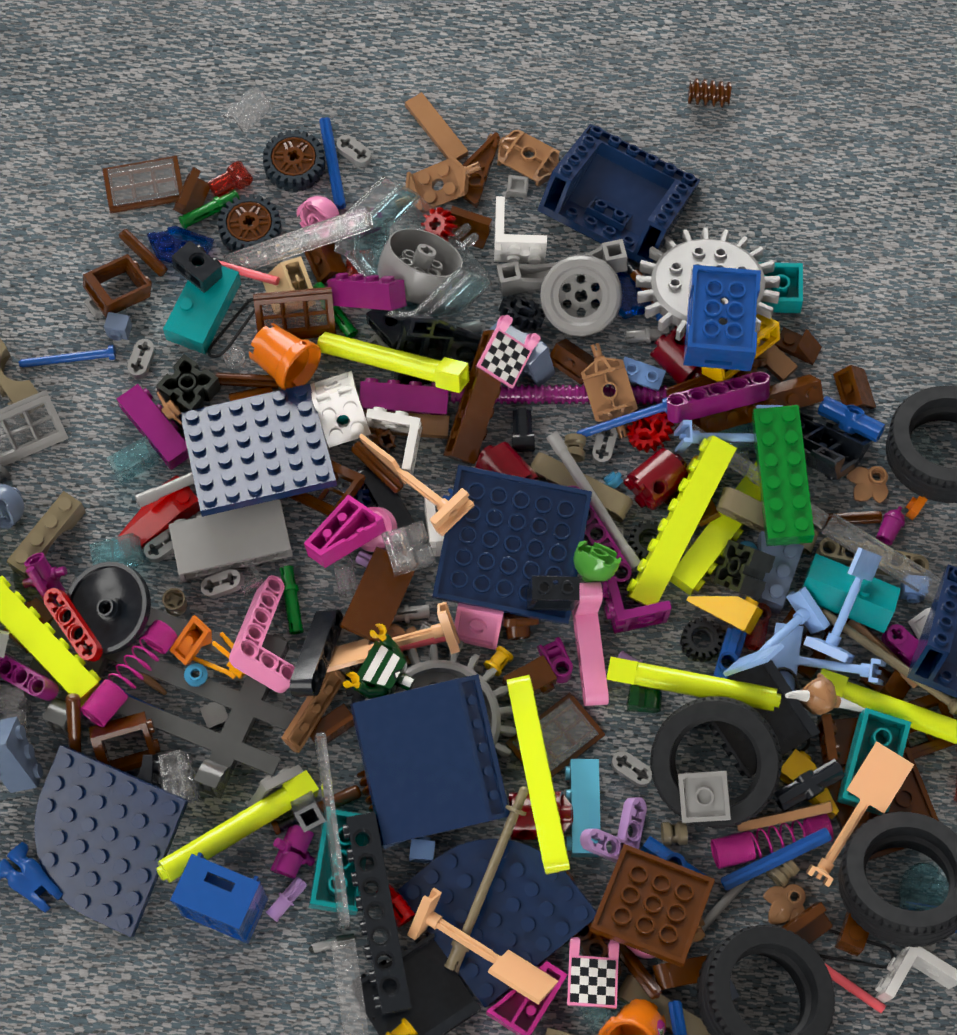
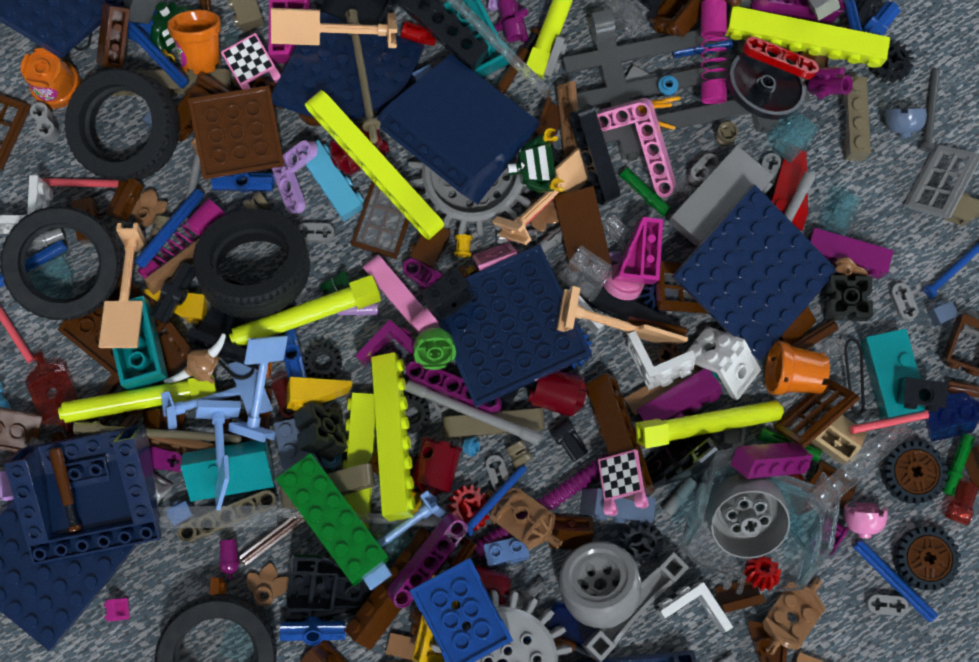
camera: 150 degrees right, 10 degrees up
(191, 640) = (689, 103): orange slope -> none
(307, 811) = (519, 41): brick -> none
(704, 796) = (242, 224): light grey plate -> none

